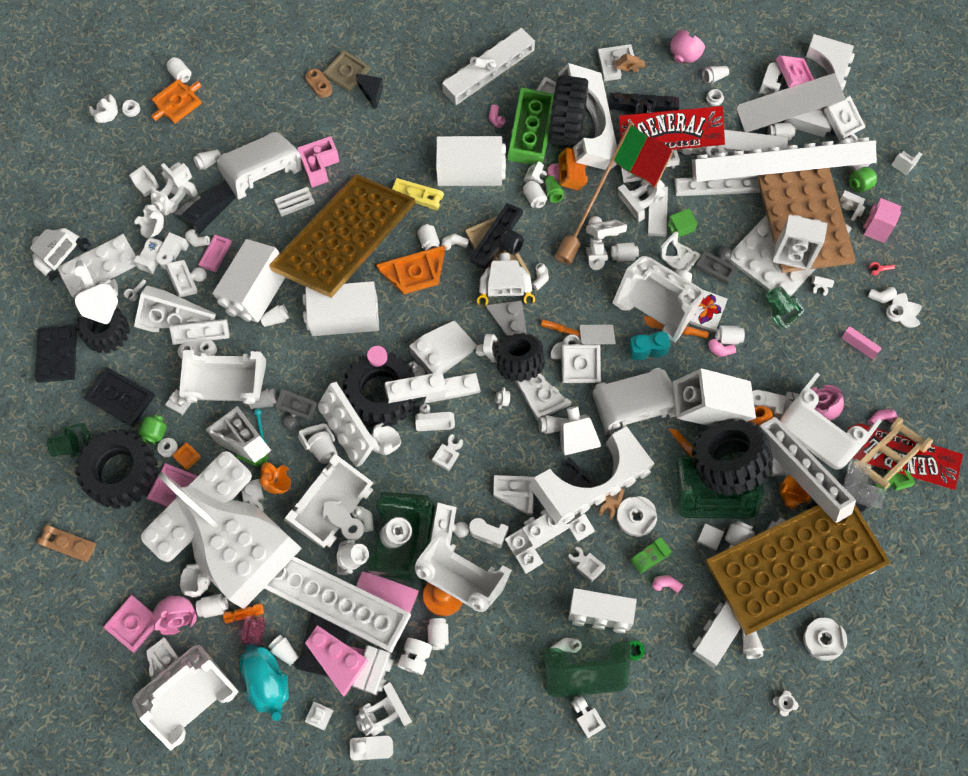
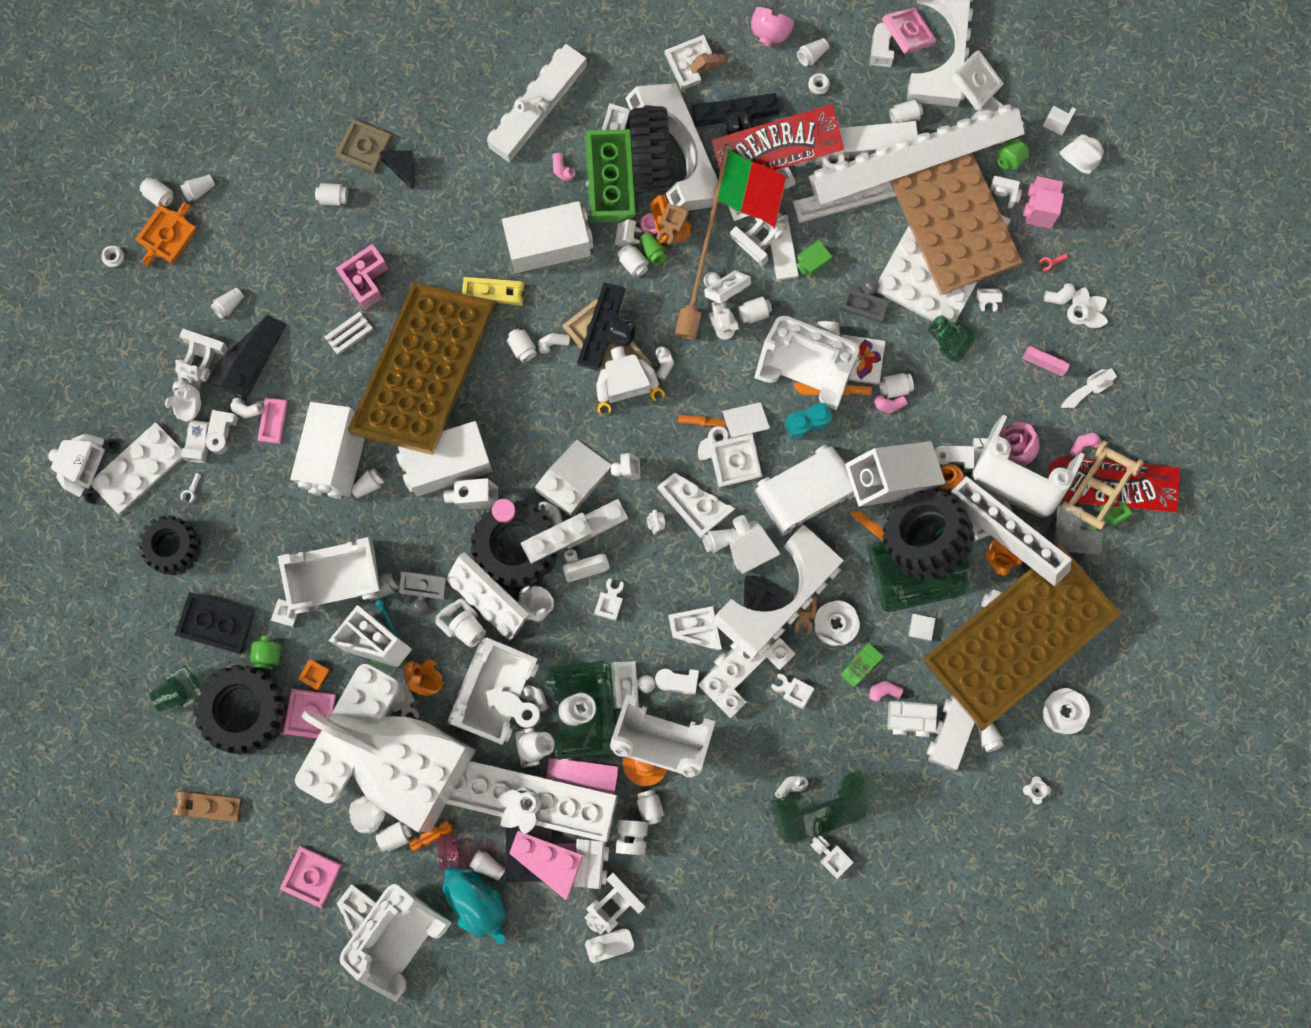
camera: 15 degrees left, 10 degrees up
(56, 354) = (123, 589): black plate -> none
(96, 301) = (155, 514): white plate -> none
(105, 110) = (82, 266): white hair -> none
(143, 180) = (160, 349): white panel -> none
(162, 309) = (239, 506): white wedge -> none
(169, 452) = (296, 669): white plate -> none
(170, 612) = (354, 855): bright pink cylinder -> none
(177, 173) = (200, 334): white panel -> none
(183, 279) = (246, 463): white plate -> none
(197, 347) = (287, 545): white plate -> none
(199, 331) = (284, 523): white tile -> none
(210, 73) = (197, 187): none -> white cone
(258, 160) = (292, 295): white windscreen -> none
(311, 98) = (331, 194): none -> white brick
(317, 82) = (334, 169): medium nougat plate -> none
(319, 716) = (544, 925): white tile -> none
(321, 608) = (516, 810): none -> white plate
(356, 340) = (472, 494): none -> white torso
(415, 270) = (515, 389): orange wing -> none
(508, 317) = (640, 422): light grey wing -> none
(519, 357) = (663, 456): black tyre -> none
(573, 167) = (672, 220): none -> medium nougat plate
(602, 610) = (822, 740): white brick -> none
(641, 650) = (873, 770): green bush -> none
(685, 257) = (826, 300): white piece -> none
(685, 611) = (912, 717): none -> white brick
(738, 533) = (952, 618): white head -> none
(790, 102) = (910, 74): white sticker -> none
(800, 242) = (955, 262): white brick -> none
(900, 370) = (1095, 383): none -> white piece
(922, 191) = (1083, 153): none -> white piece

